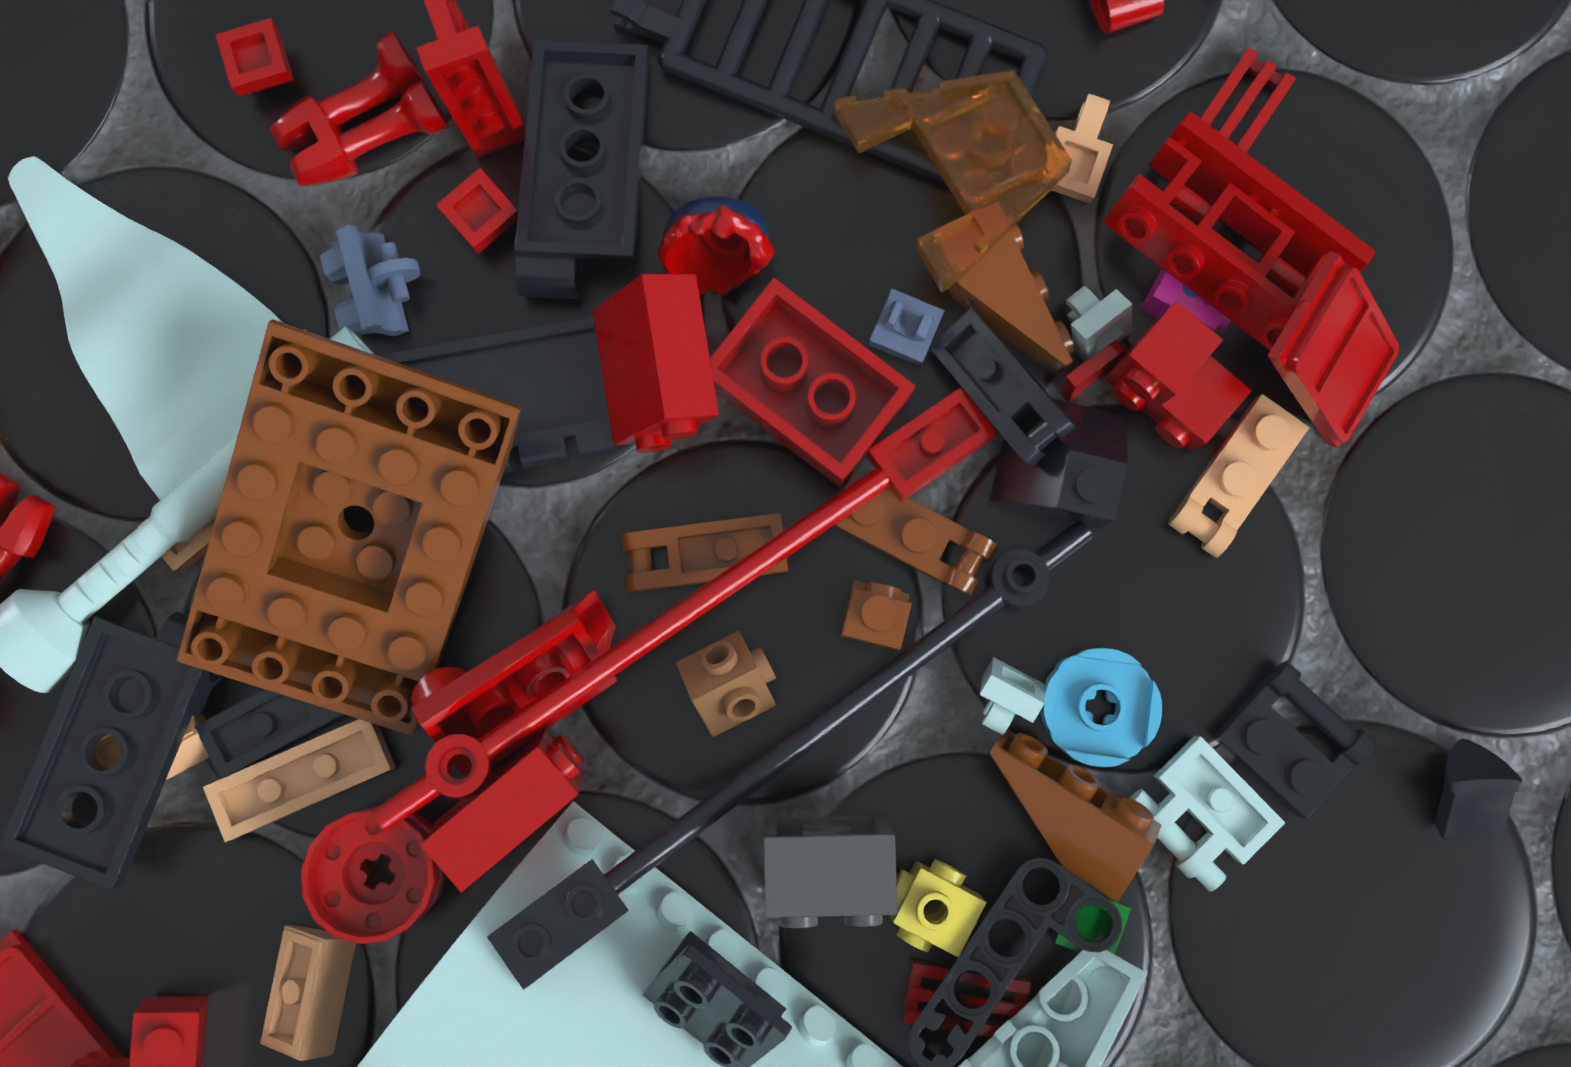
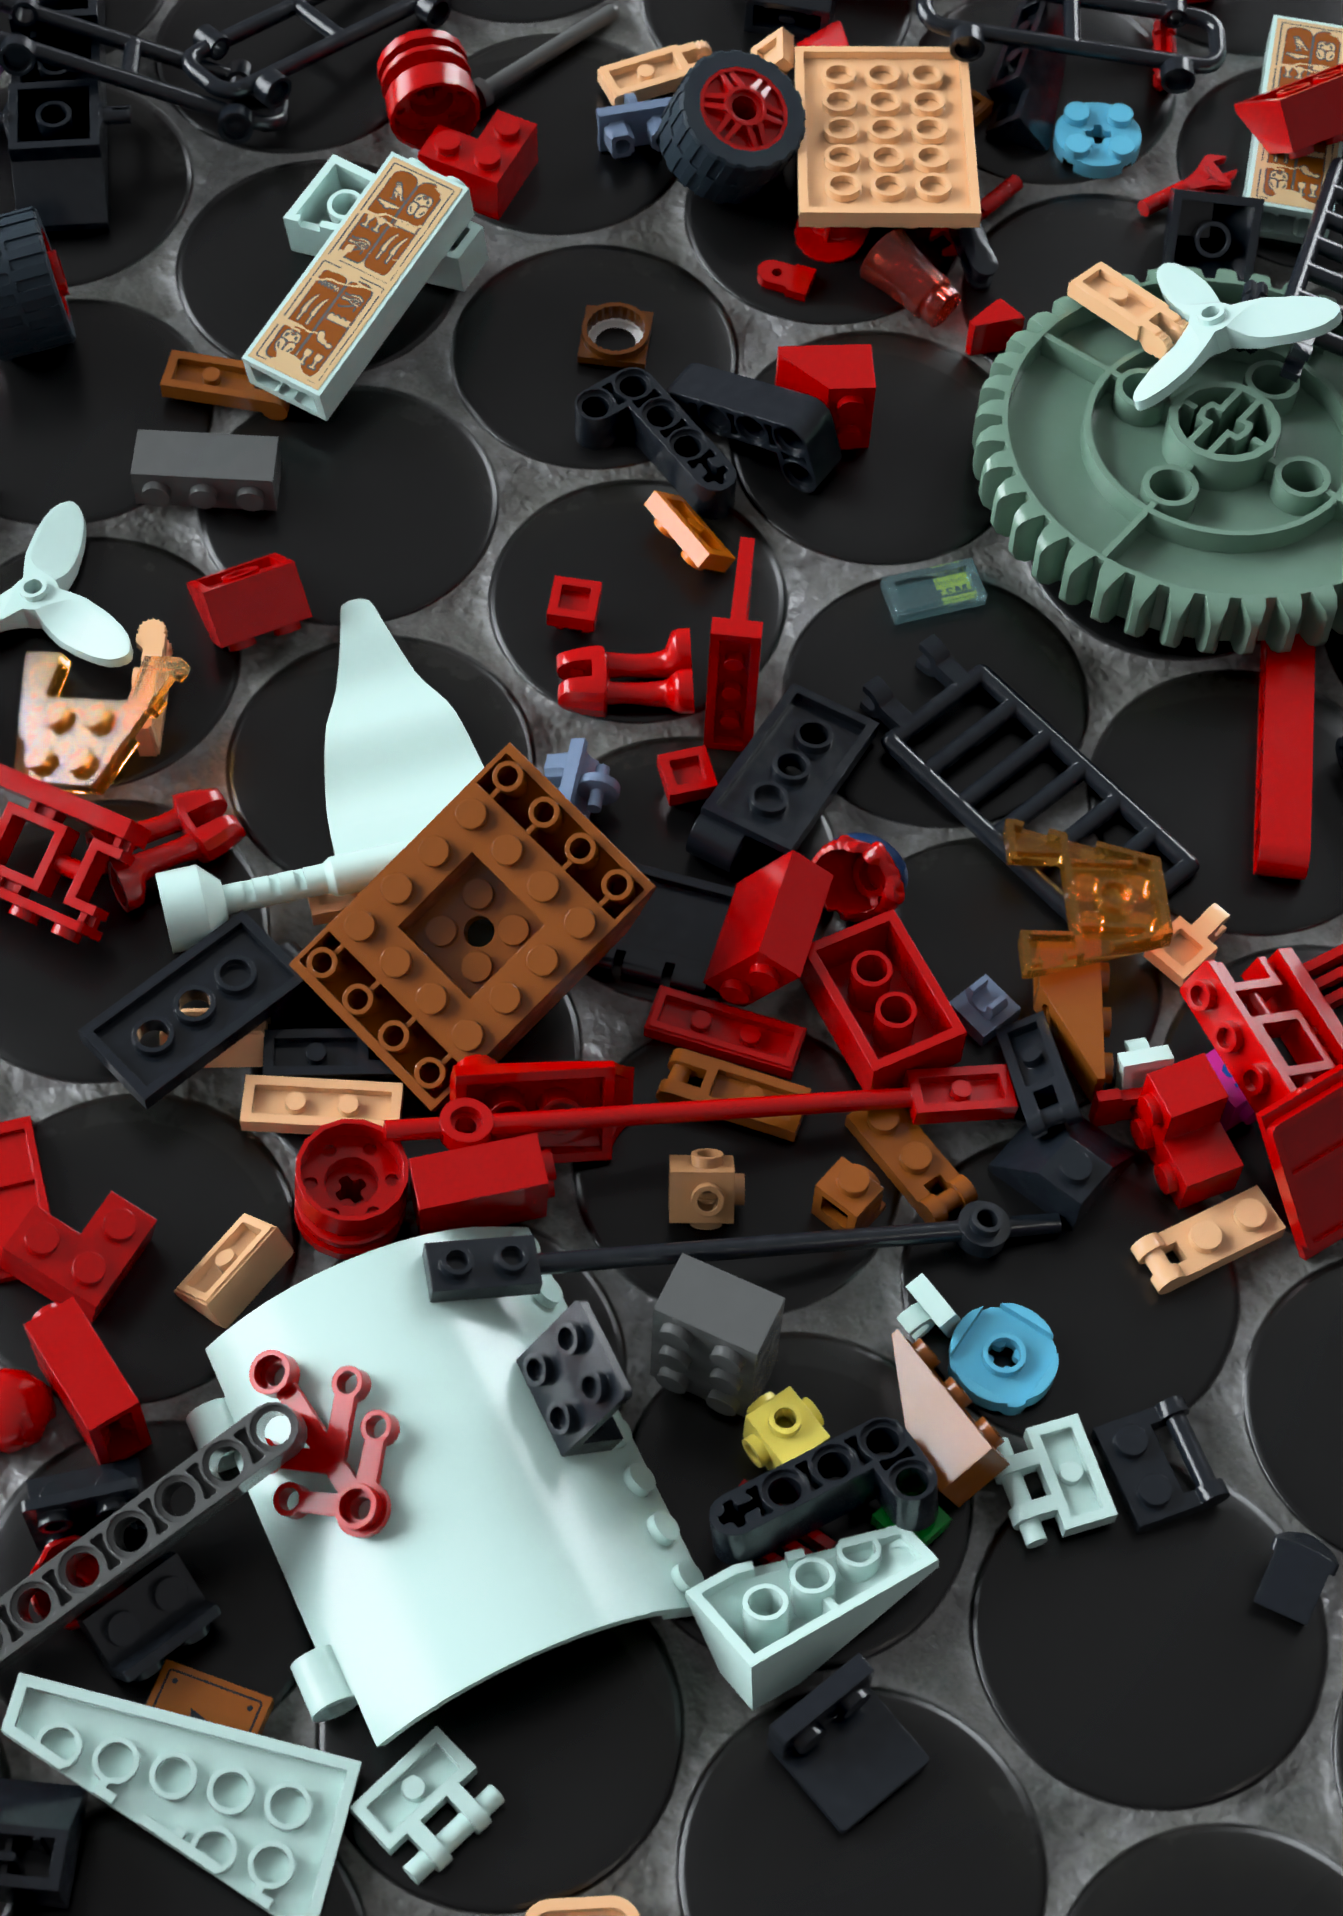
camera: 25 degrees right, 25 degrees down
(660, 482) = (725, 1032): none -> red tile

